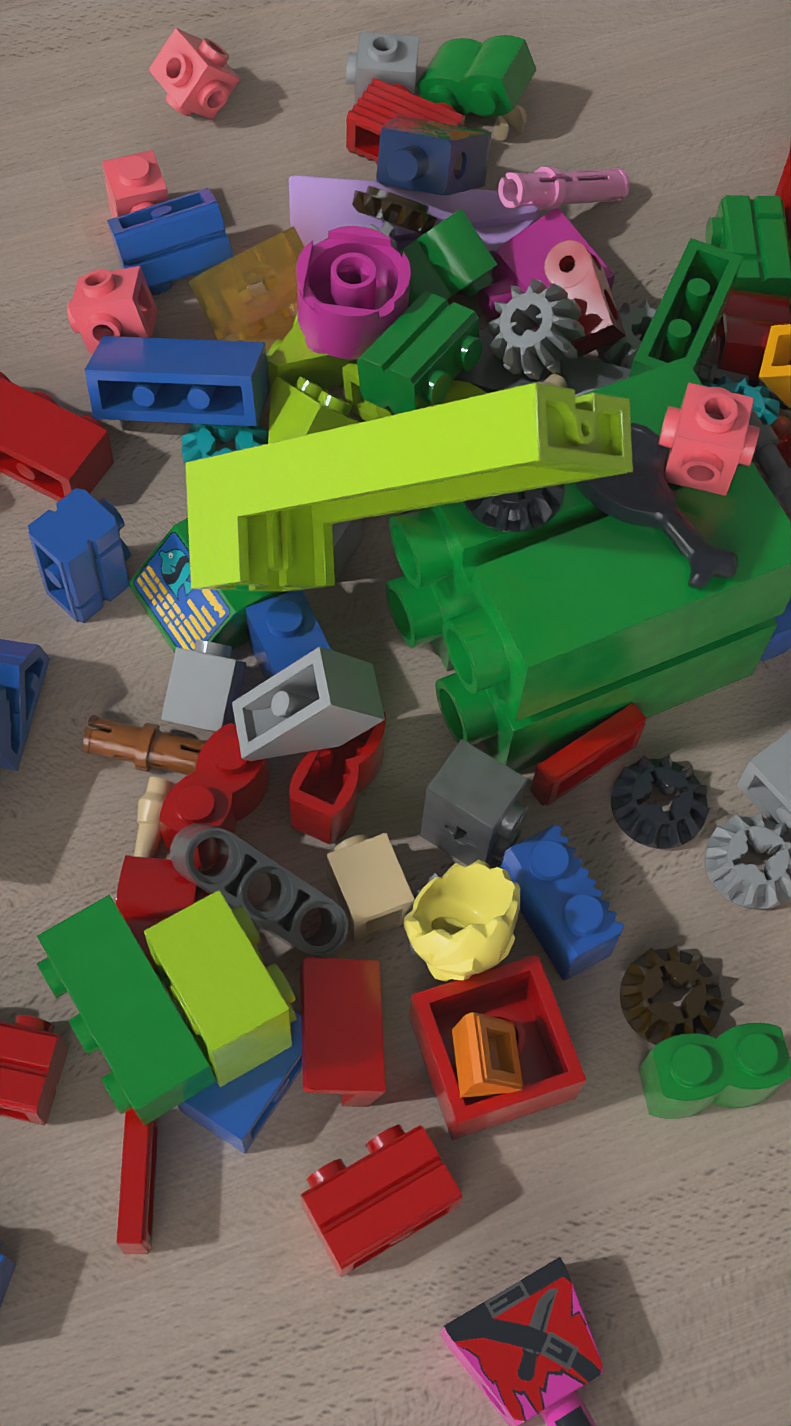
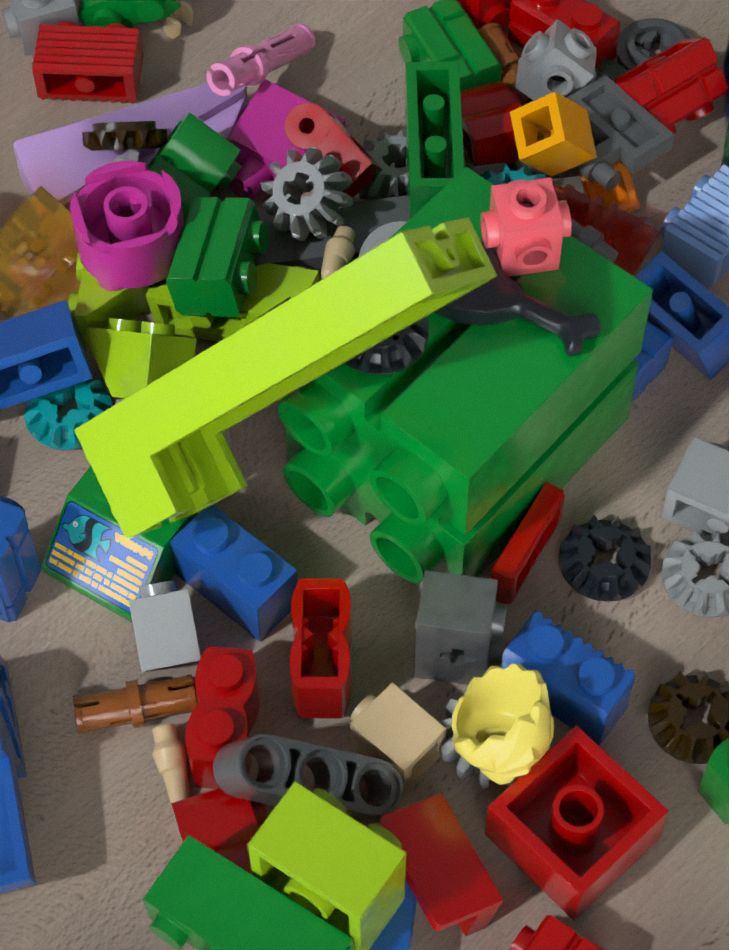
camera: 20 degrees left, 5 degrees down
(308, 706) = (277, 600): light grey slope -> none
(423, 156) = (130, 75): dark blue torso -> none
(486, 1056) = (577, 828): orange slope -> none

